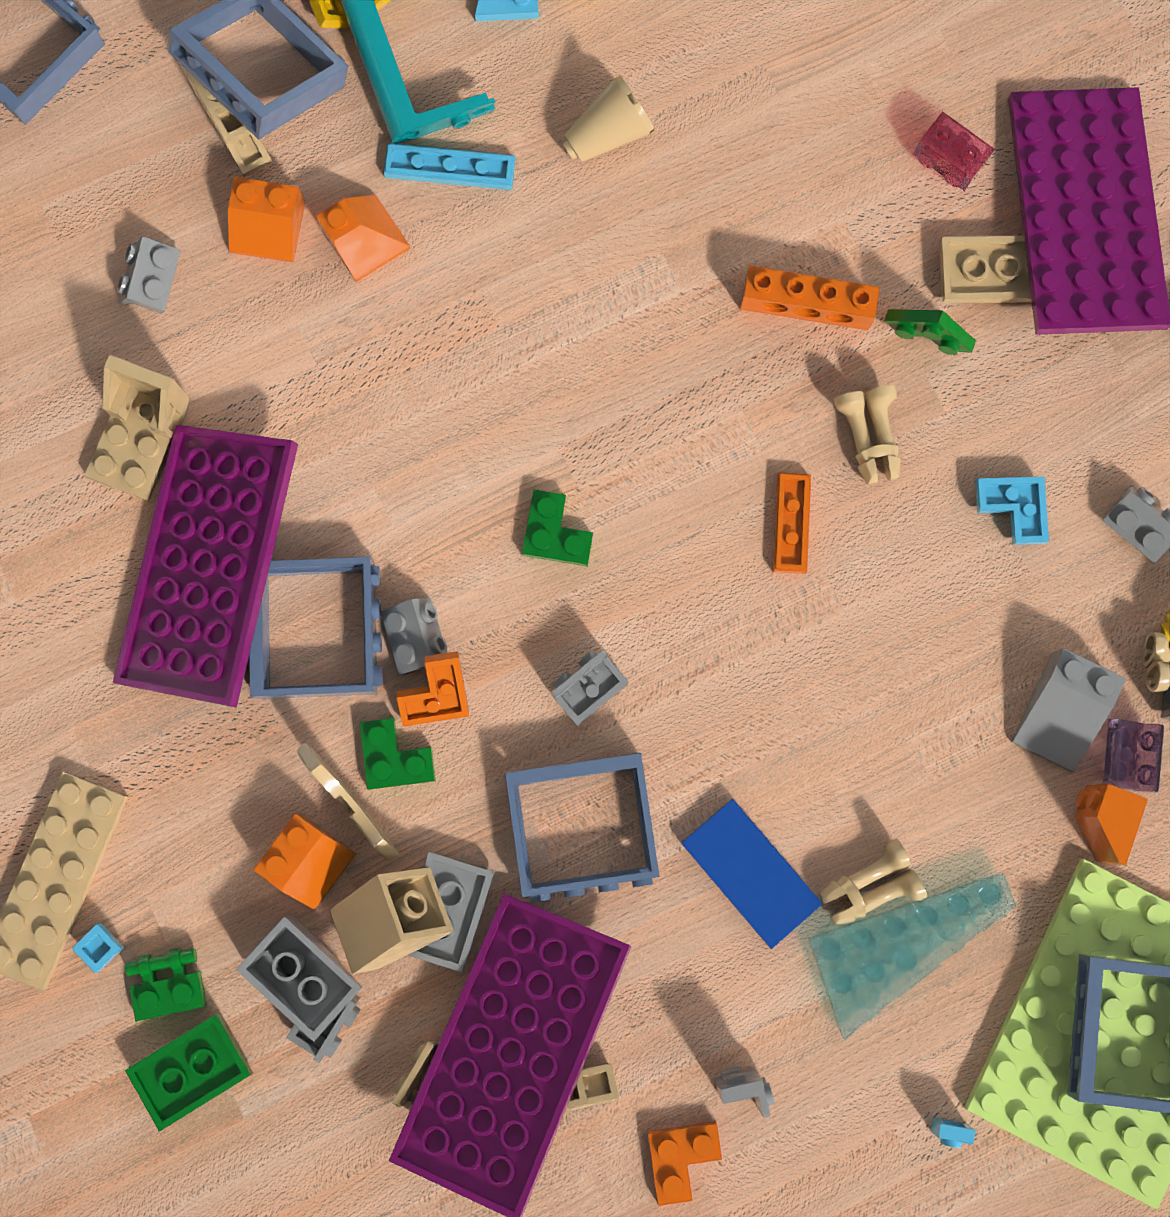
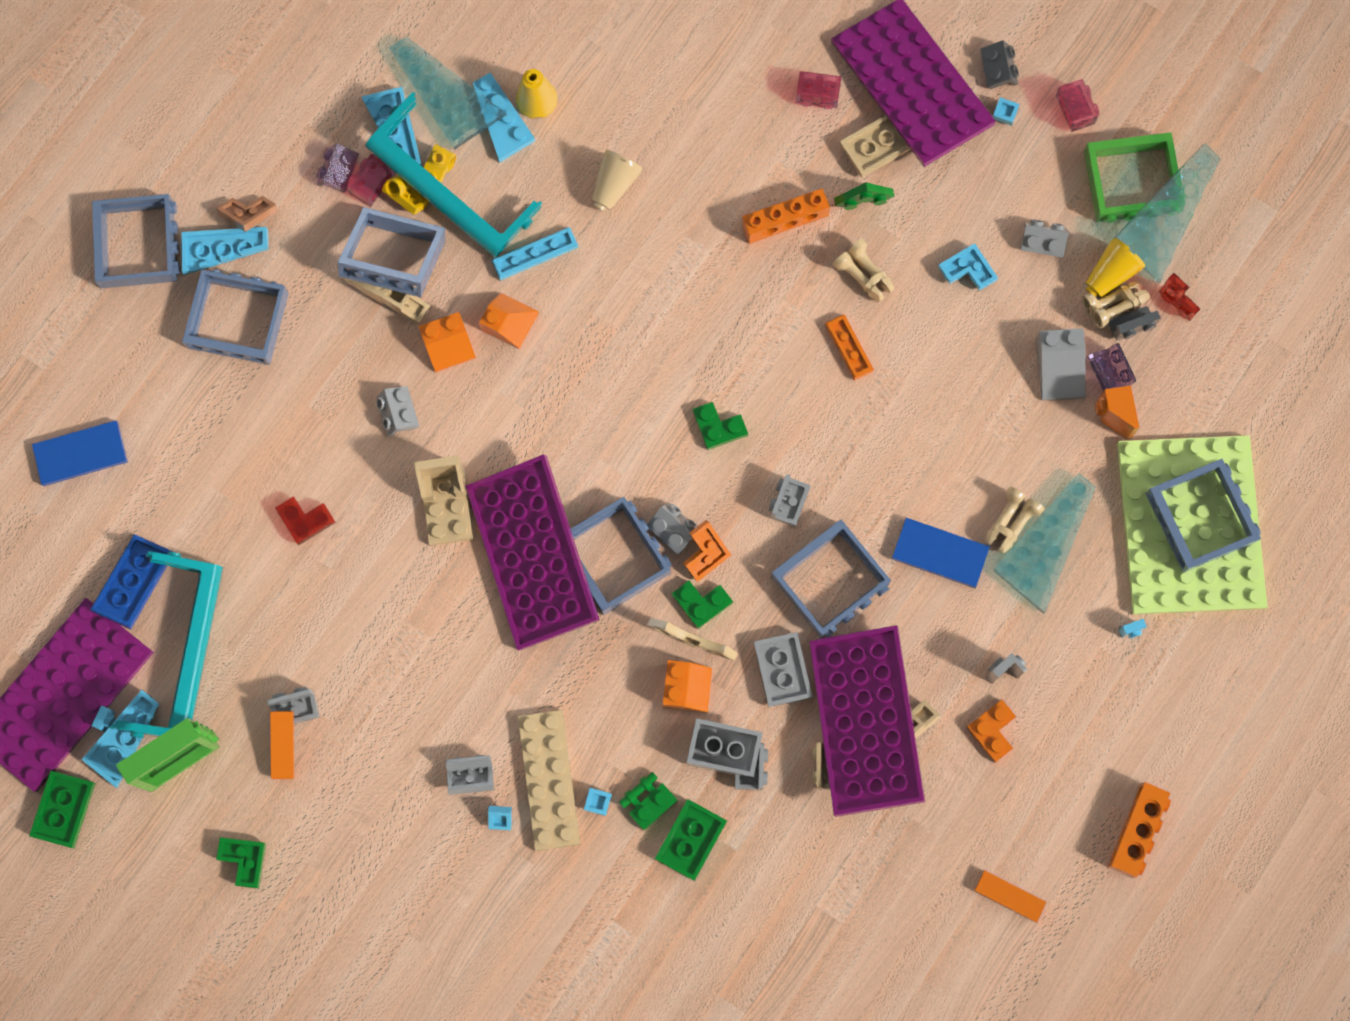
camera: 25 degrees left, 5 degrees down
(390, 918) = (755, 688): tan slope -> none

